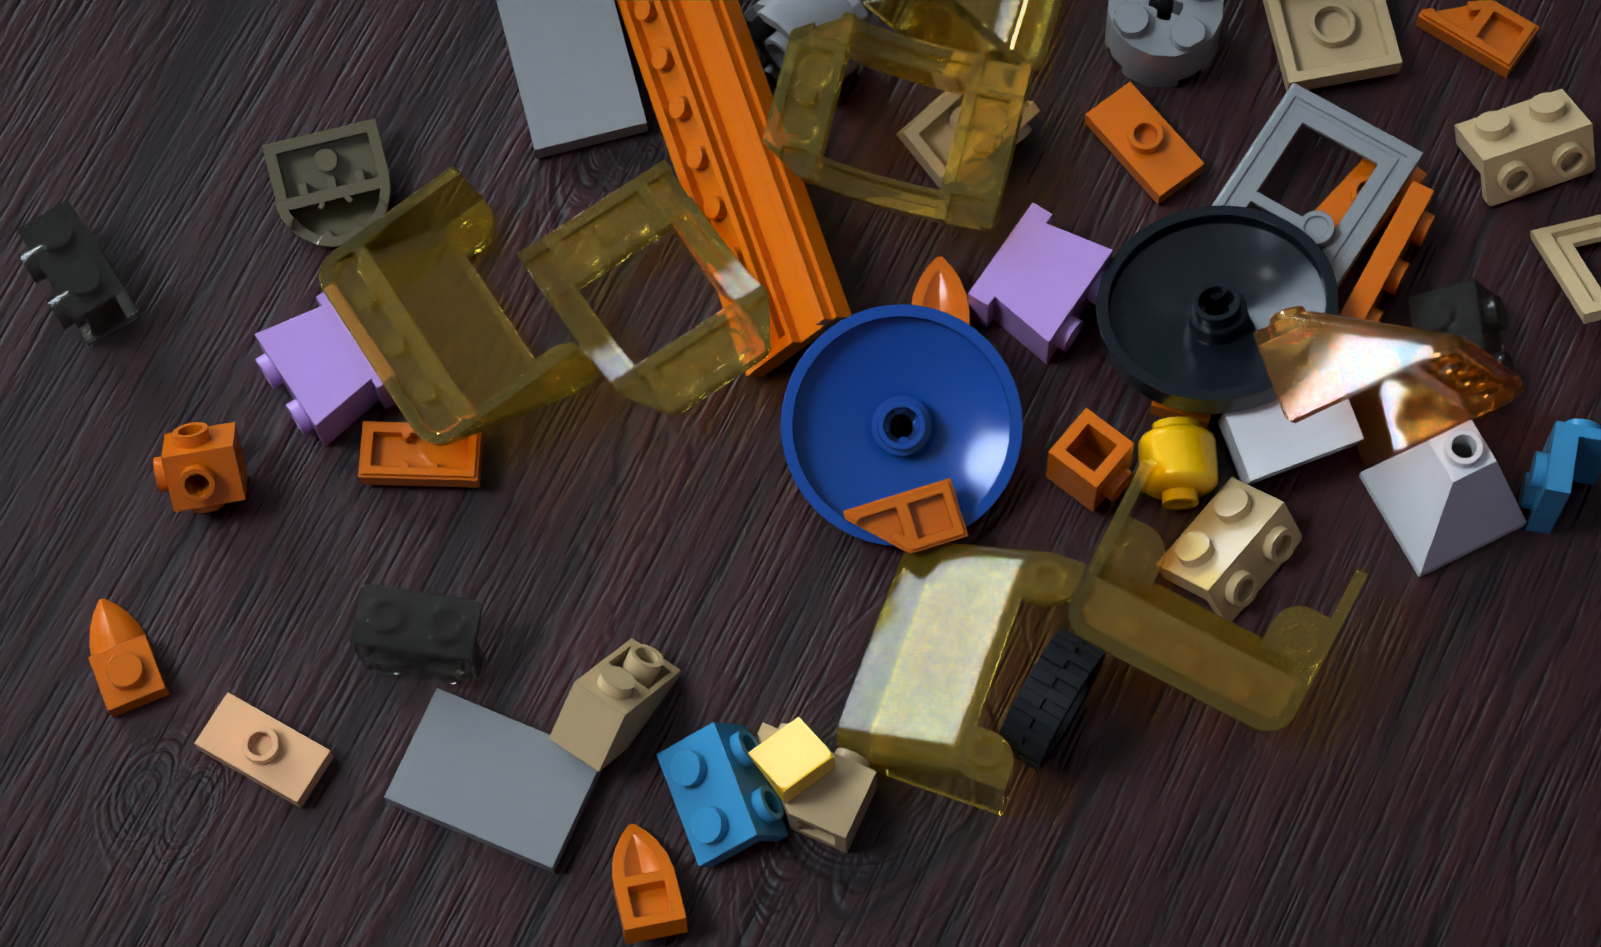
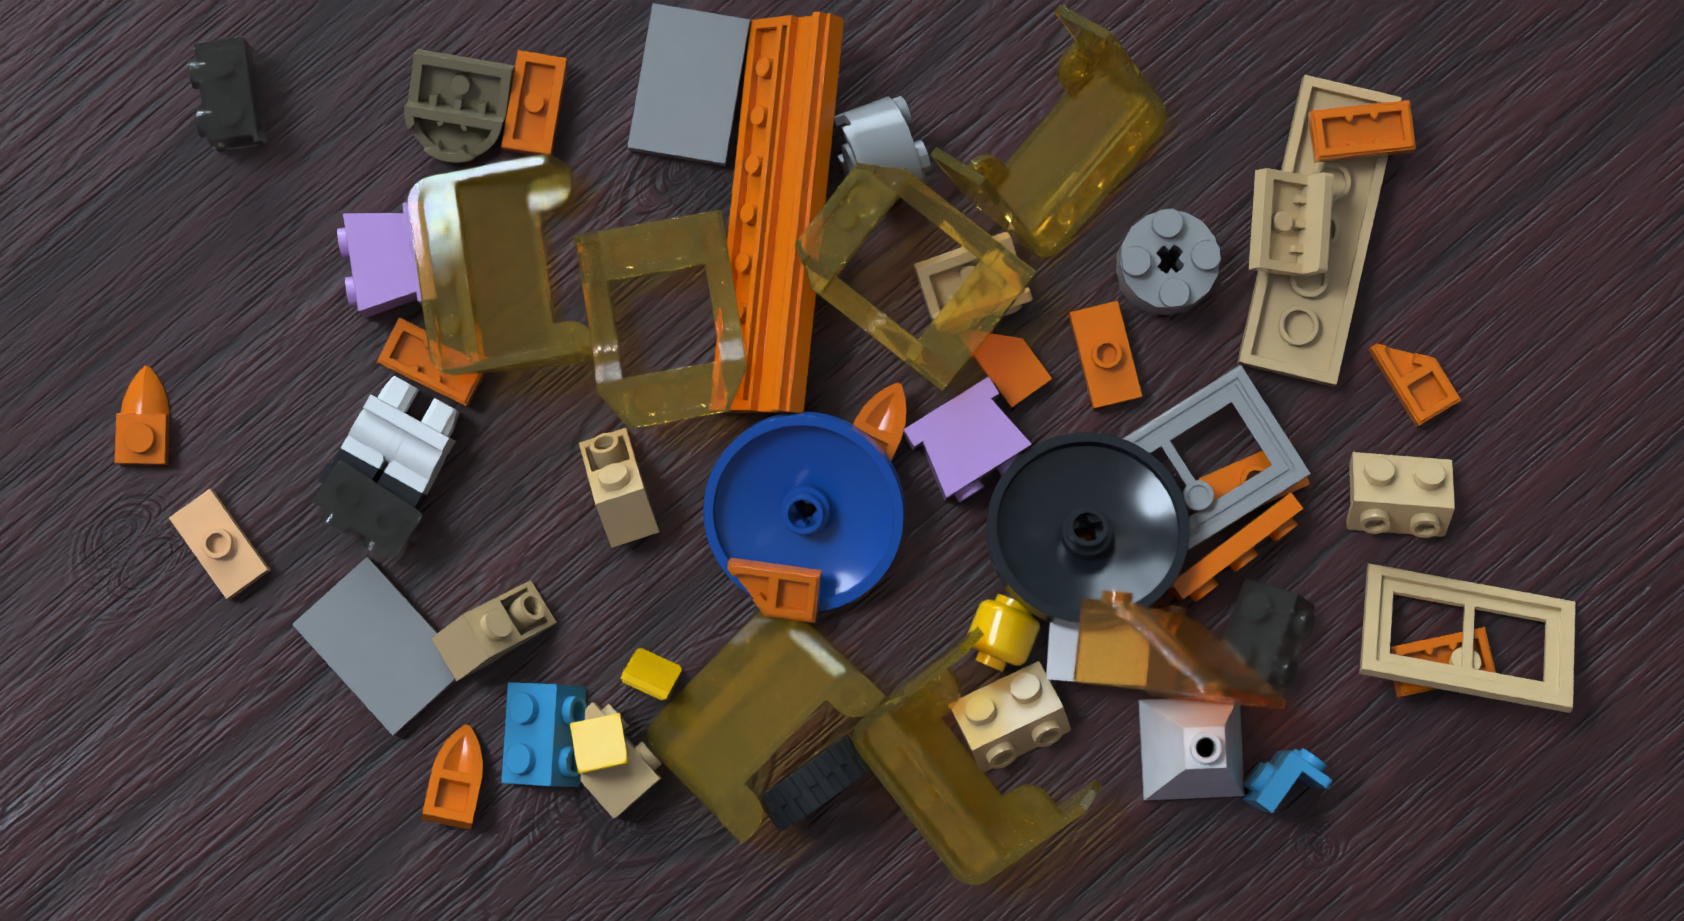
camera: 15 degrees right, 15 degrees up
(202, 467) = (261, 301): orange brick -> none
(411, 140) = (534, 103): none -> orange plate
(420, 544) = (391, 436): none -> white hips
(686, 493) = (618, 487): none -> tan slope
(813, 680) = (651, 674): none -> yellow slope
(1053, 189) = (1011, 367): none -> orange tile
(1091, 461) = (935, 607): orange brick -> none

